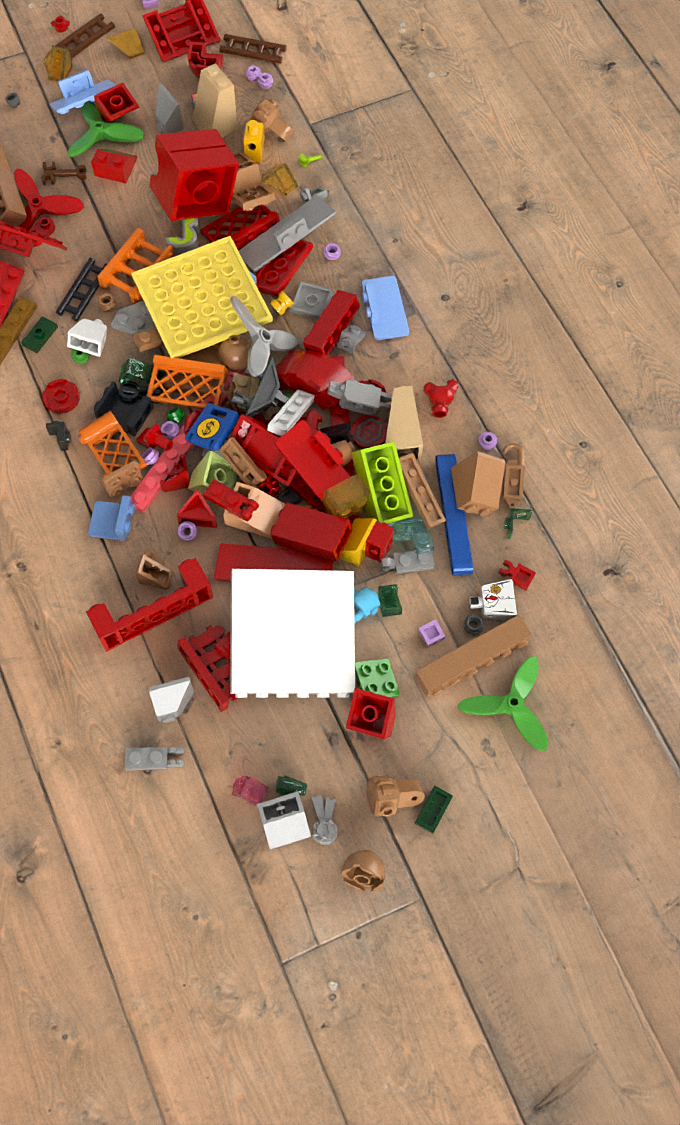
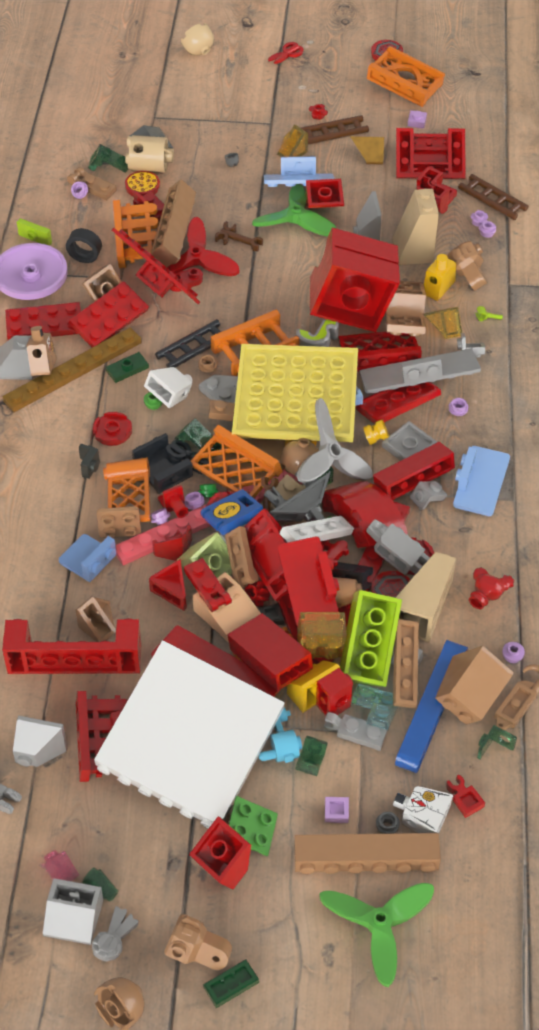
camera: 30 degrees right, 15 degrees down
(113, 164) = (290, 247): red slope -> none
(181, 531) = (149, 595): lavender plate -> none

